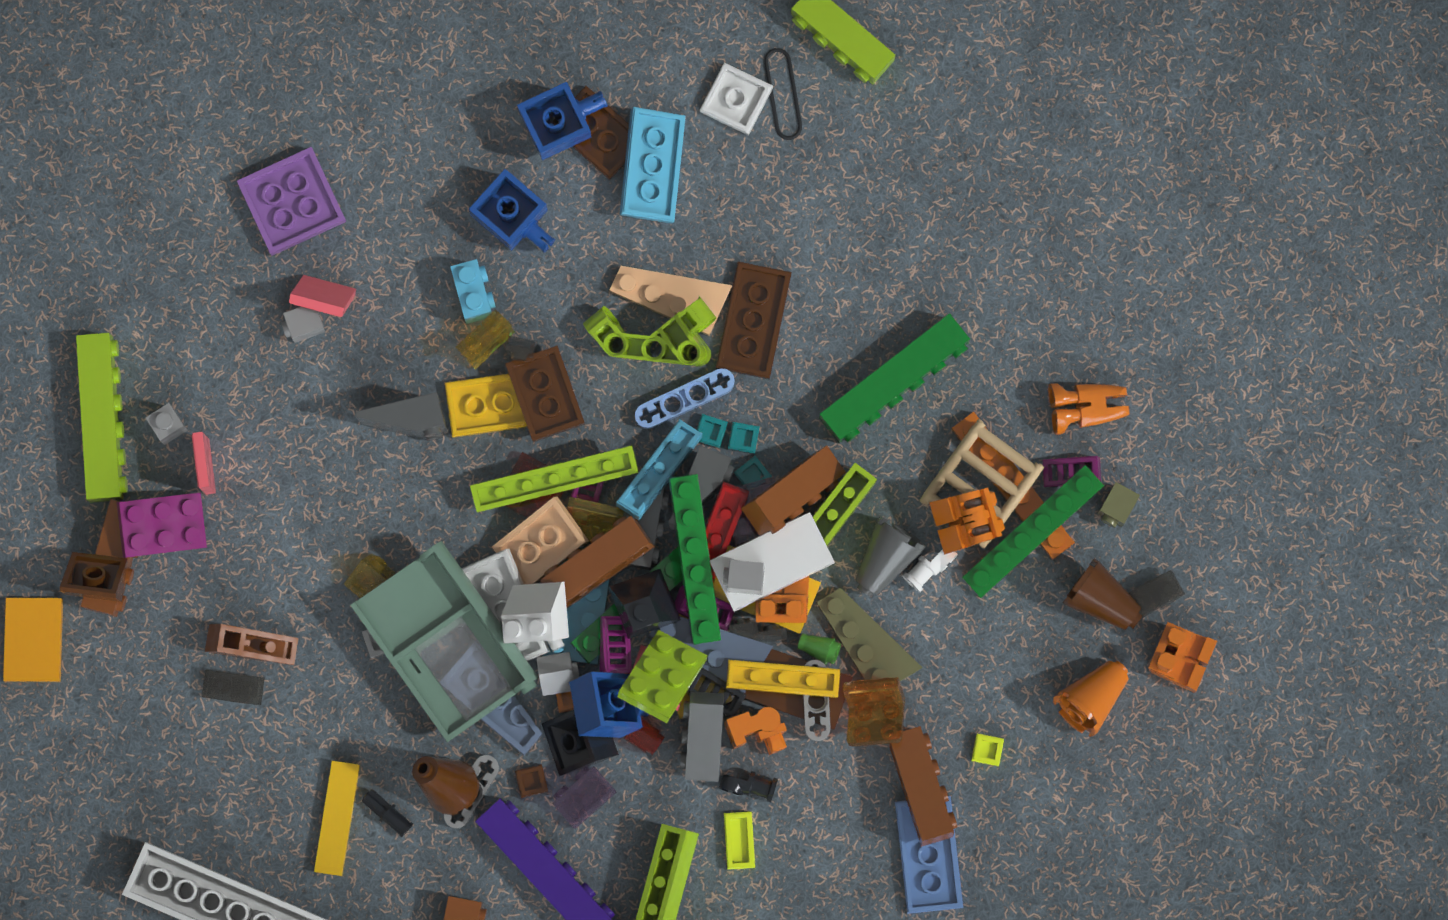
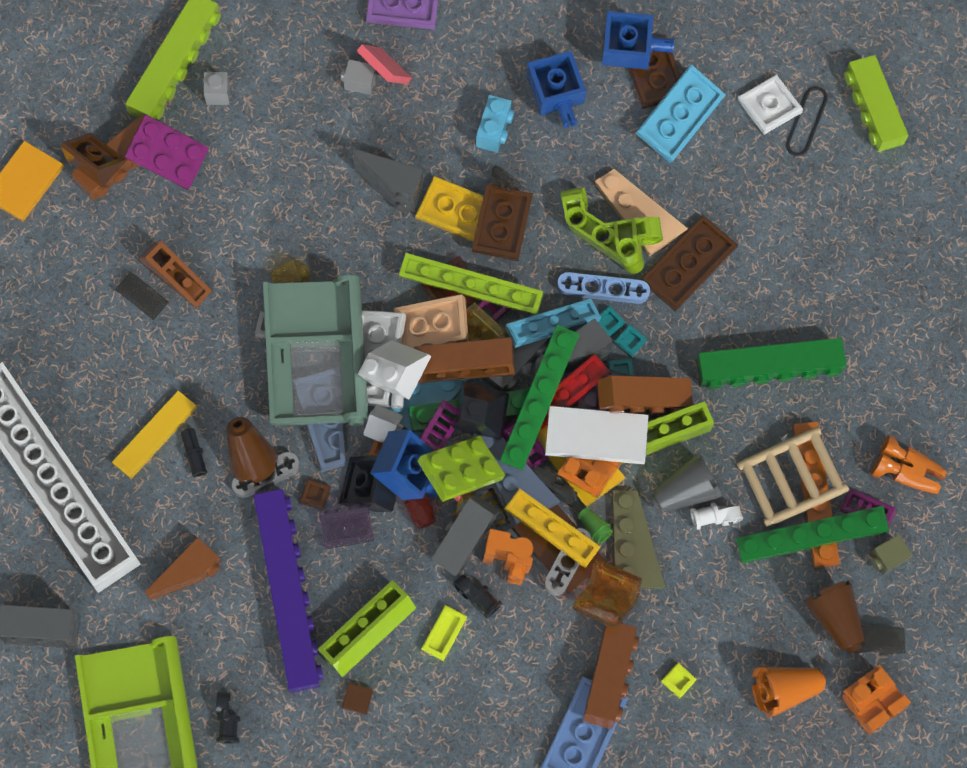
camera: 30 degrees right, 10 degrees down
(203, 463) = (224, 127): coral tile -> none
(485, 339) = (480, 161): clear yellow bracket -> none
(744, 577) = (569, 430): light grey brick -> none
(969, 518) = (766, 492): orange hips -> none

